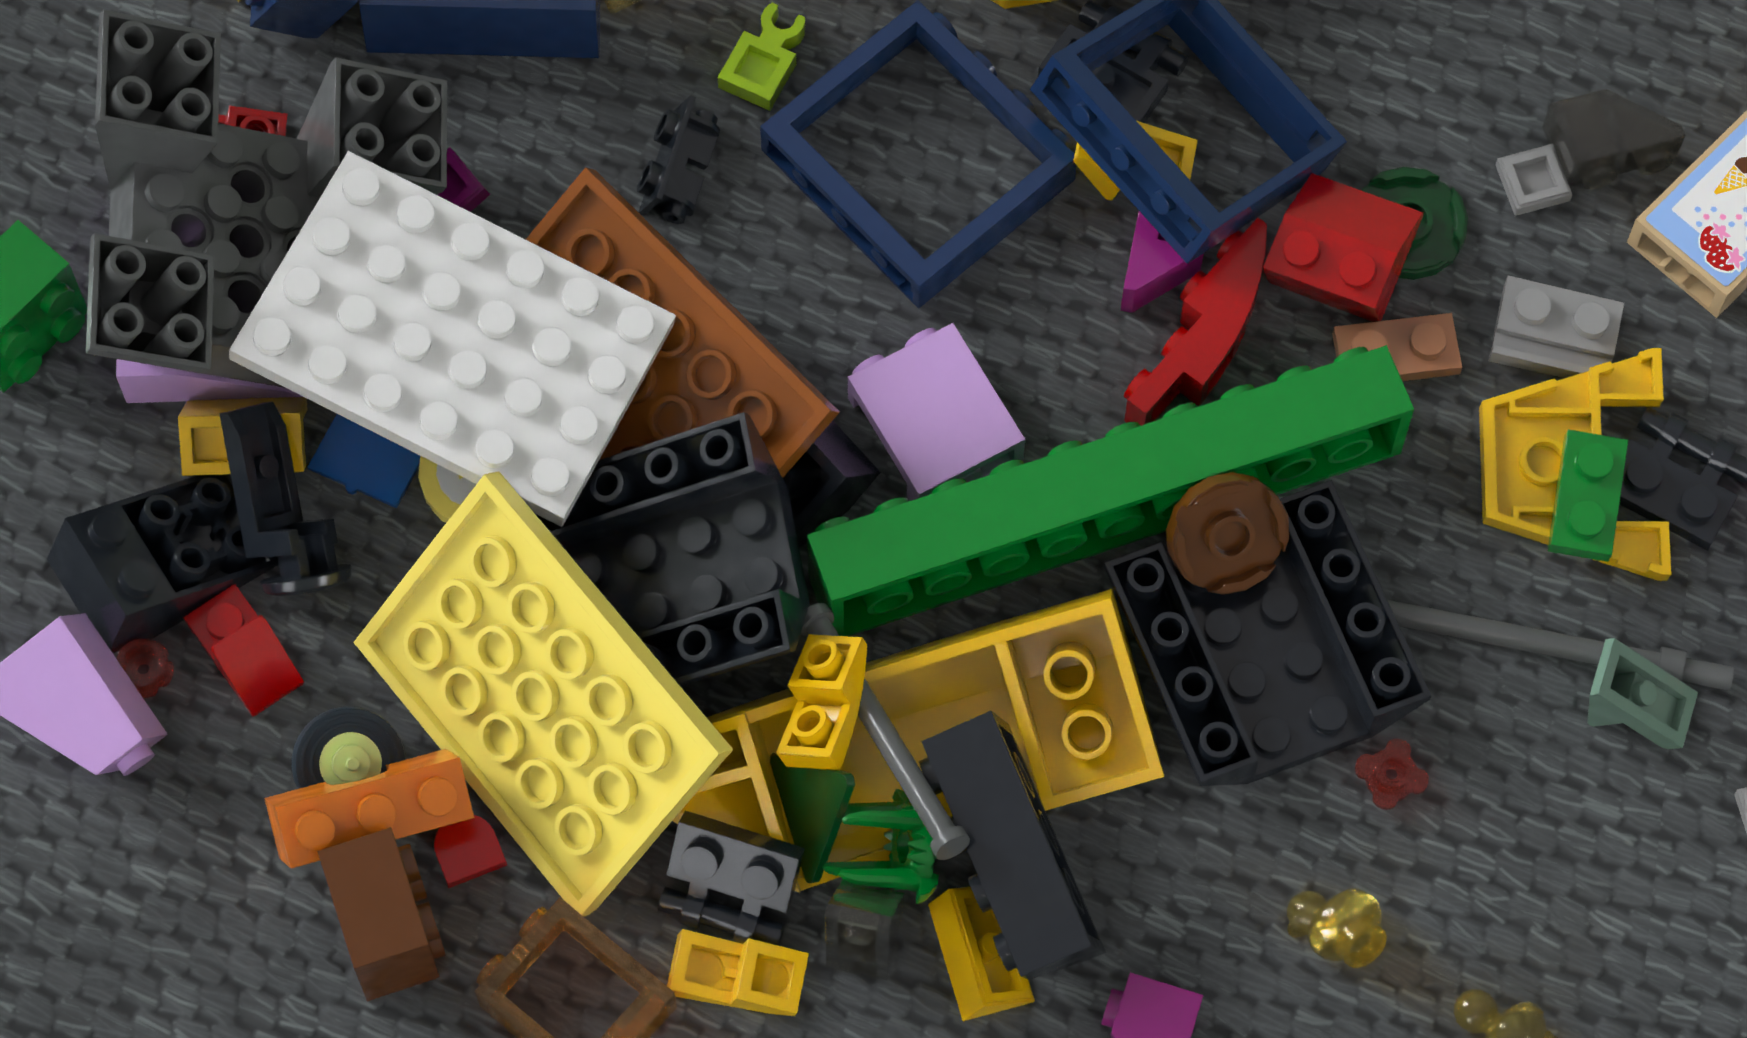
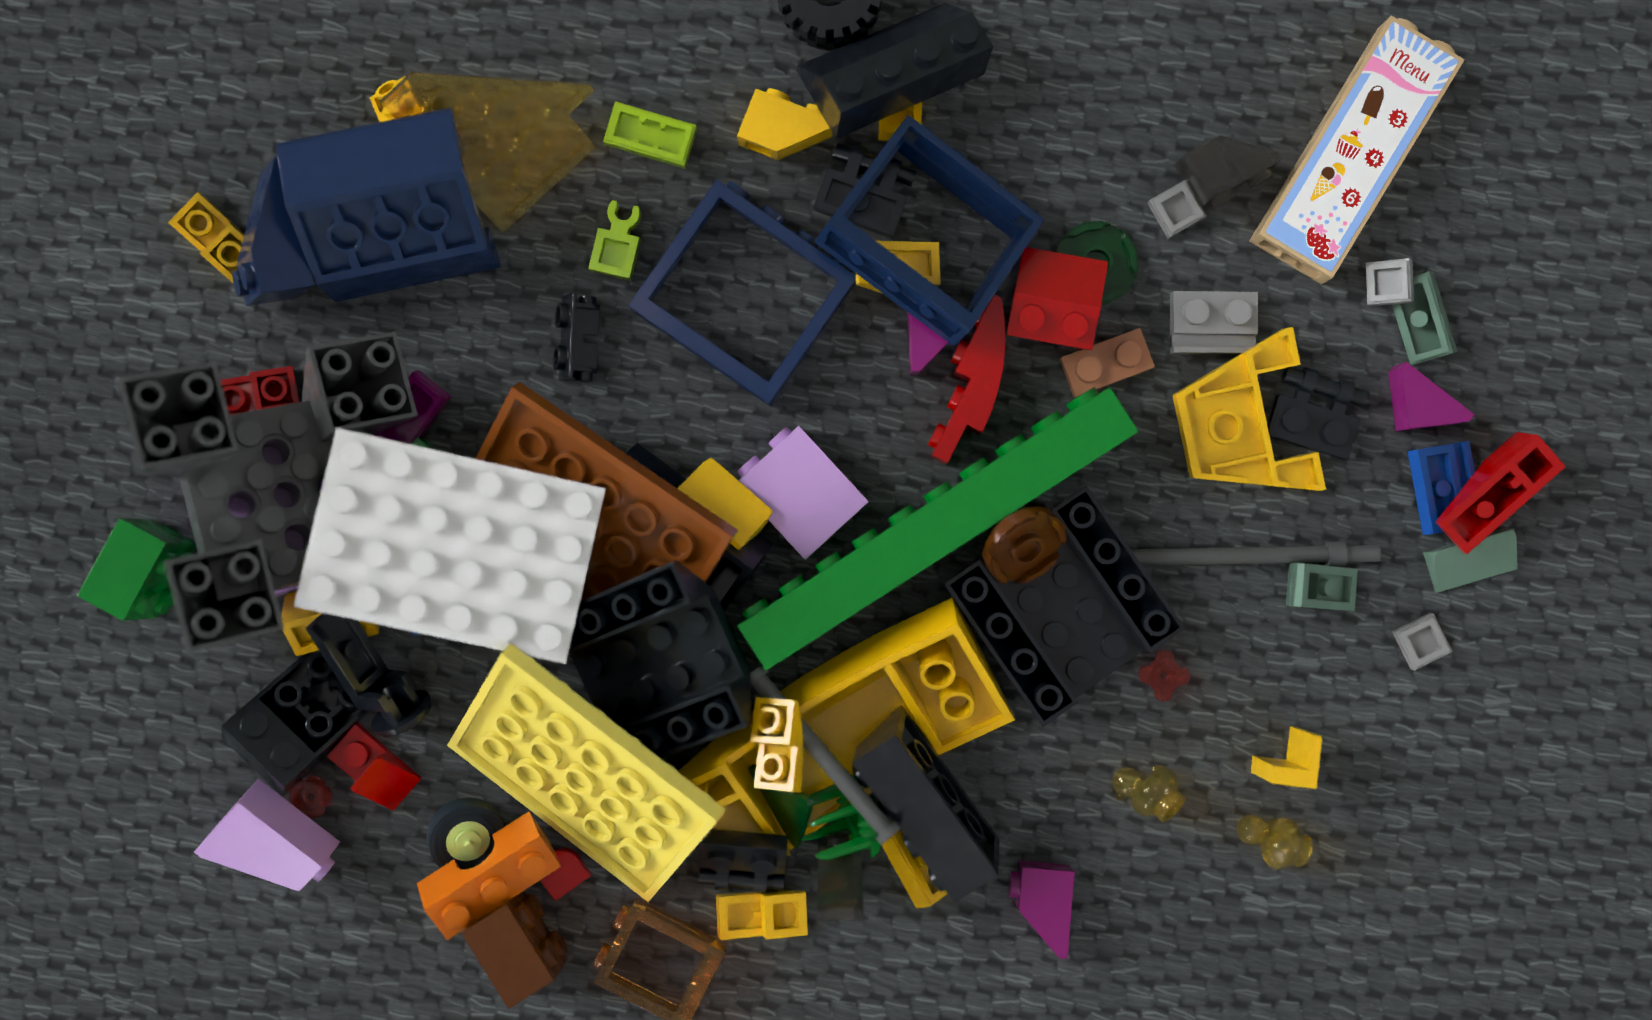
camera: 10 degrees left, 20 degrees up
(860, 414) = (728, 499): none -> yellow slope
(1540, 922) = (1301, 762): none -> yellow panel
(1587, 495) = (1261, 449): green plate -> none

